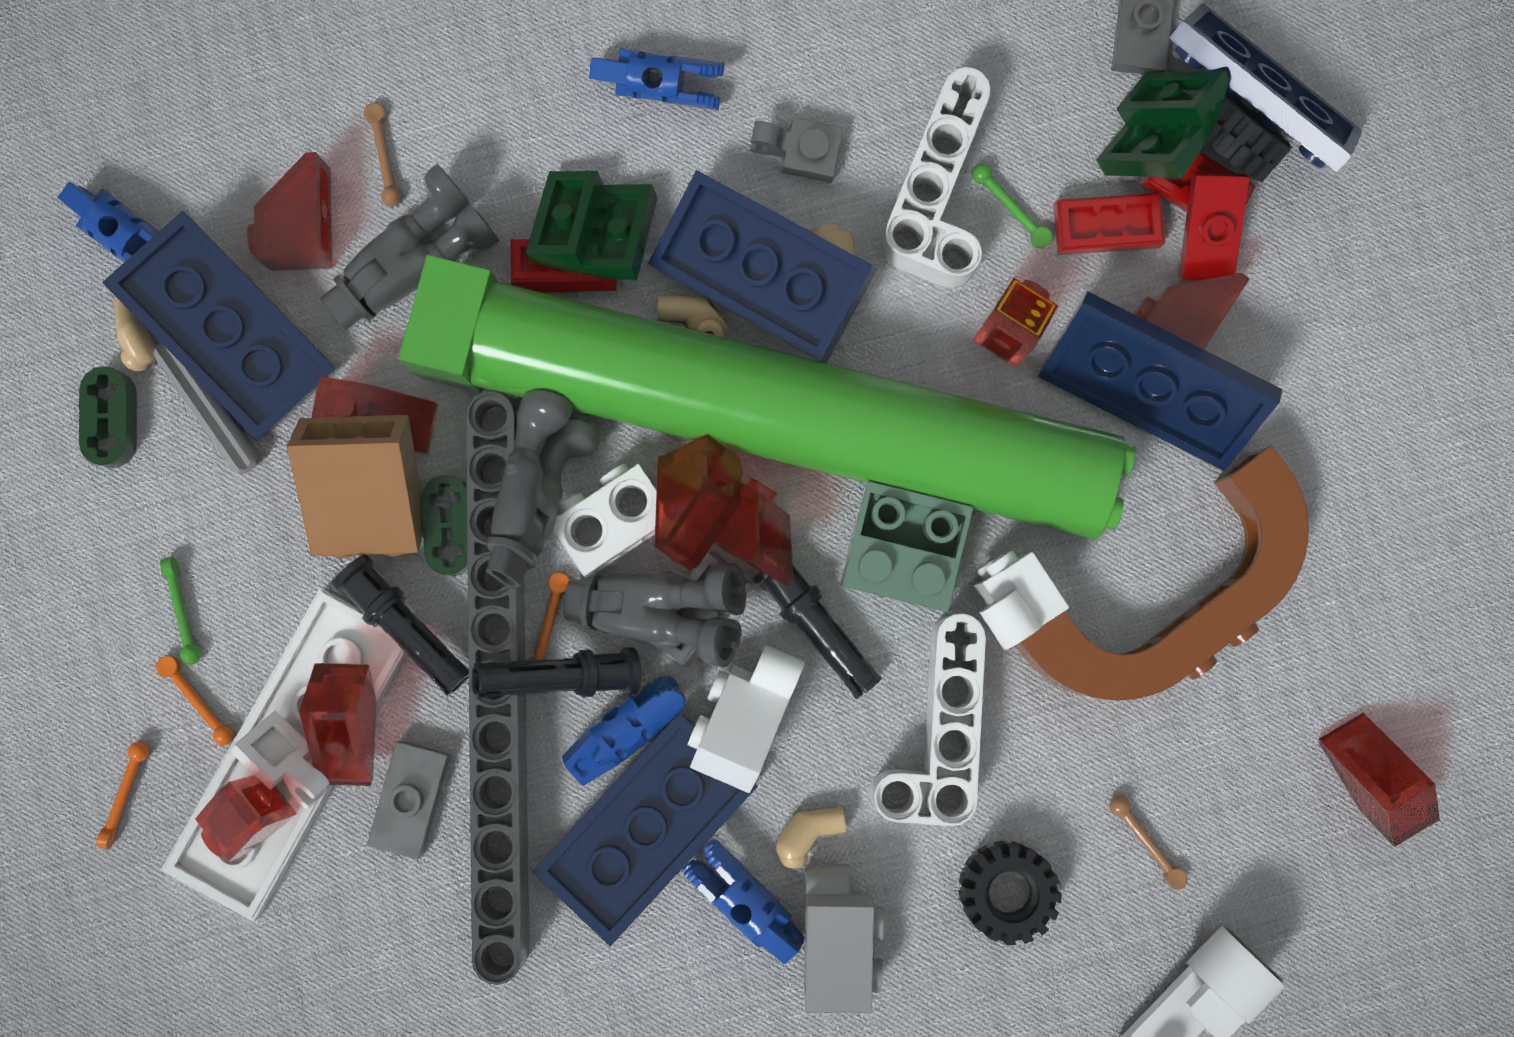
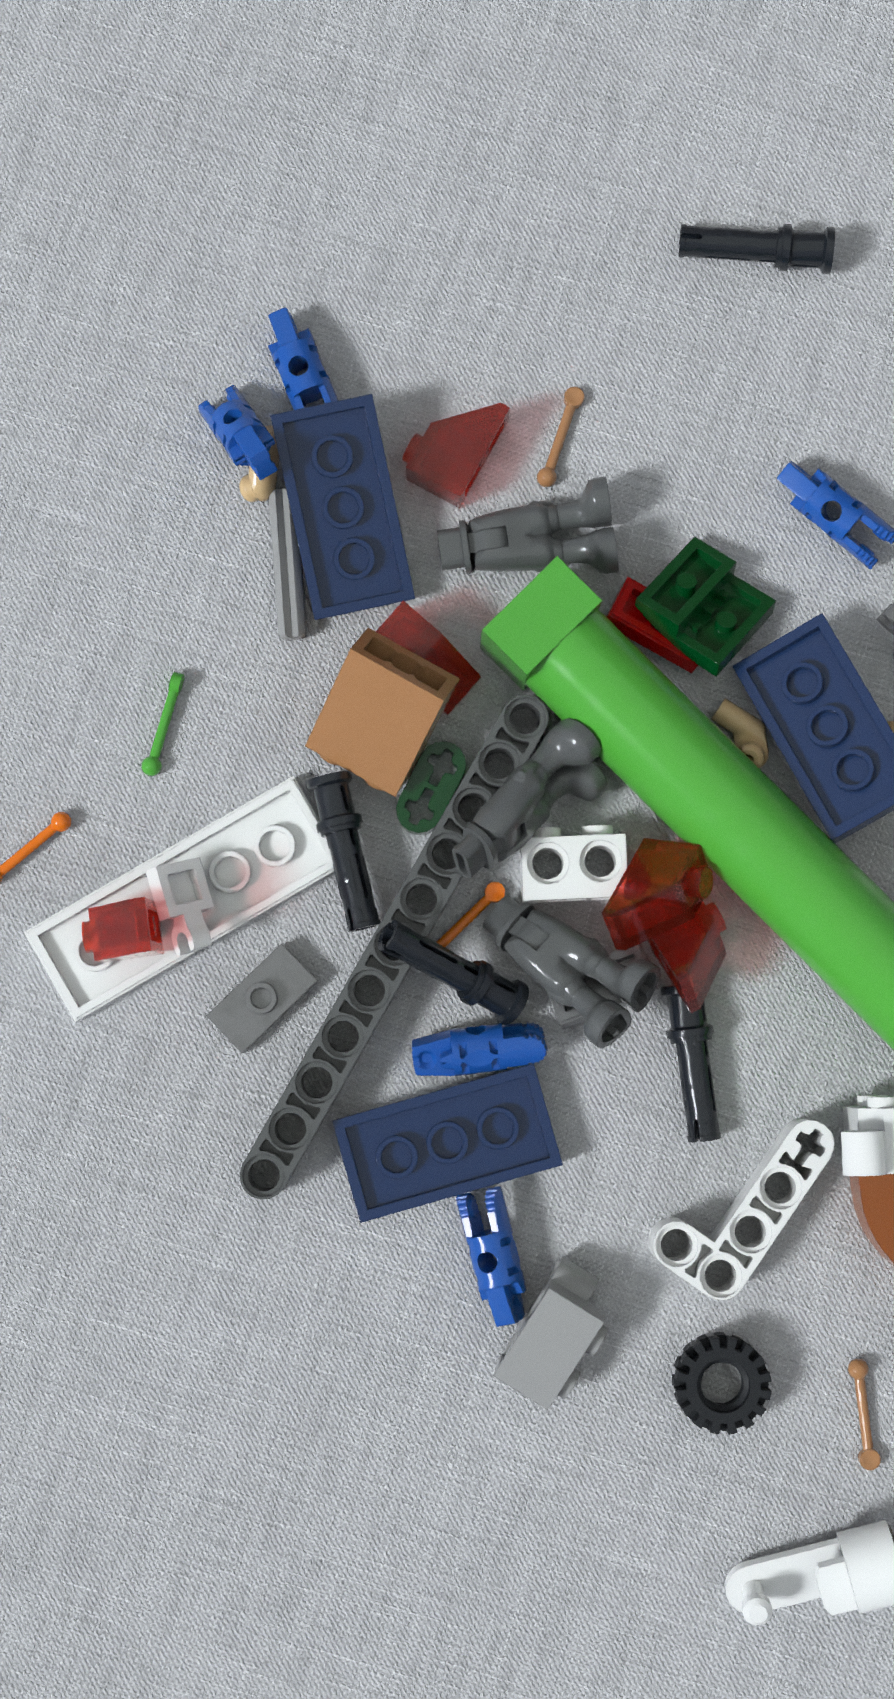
camera: 30 degrees right, 0 degrees up
(90, 314) = (240, 432): none -> blue hinge
(102, 417) = (188, 518): dark green beam -> none
(170, 667) = (127, 766): orange hinge -> none
(341, 722) = (250, 901): clear red slope -> none
(745, 718) = (587, 1101): white hinge -> none
(803, 831) = (577, 1226): tan arm -> none
(906, 546) = (809, 1039): sand green slope -> none

